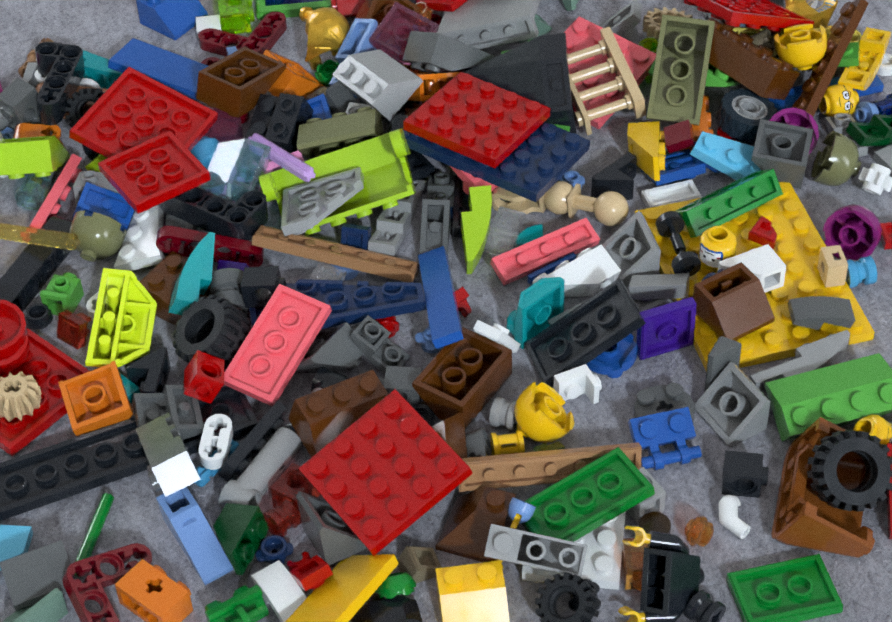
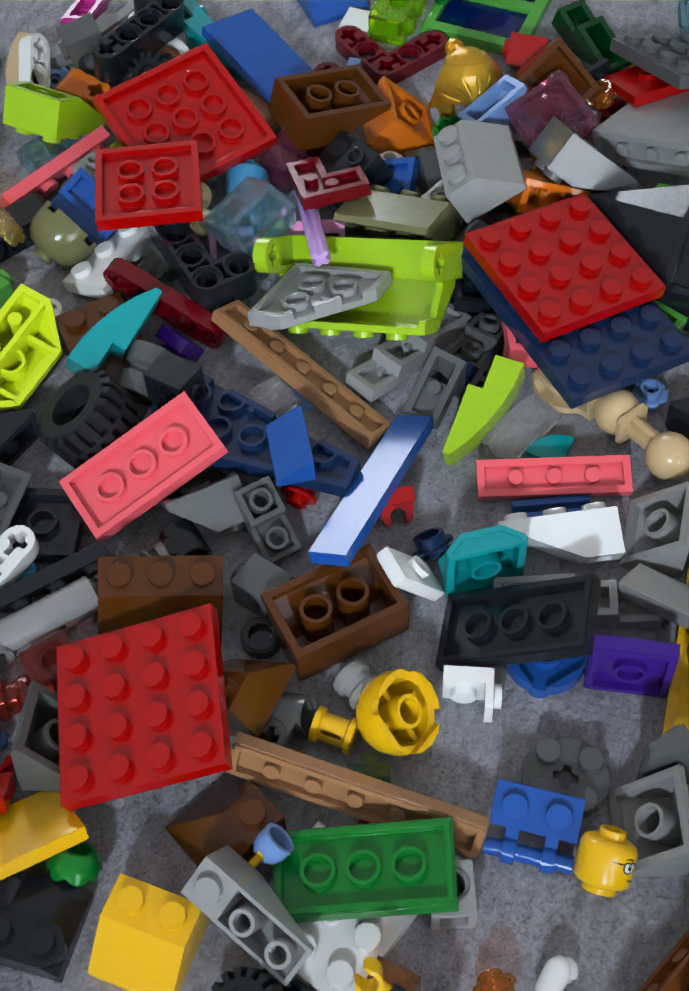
camera: 30 degrees right, 10 degrees up
(203, 377) = (48, 460): red brick -> none
(278, 132) = (318, 188): none -> dark red plate
(355, 235) = (339, 358): dark blue tile -> none
(373, 291) = (290, 448): none -> blue slope
(419, 562) = (130, 843): dark tan slope -> none
(495, 315) = (431, 543): none -> dark blue plate
(655, 522) = (444, 950): dark brown tile -> none
(718, 435) = (605, 861): none -> yellow head
(743, 474) = (606, 935): black brick -> none

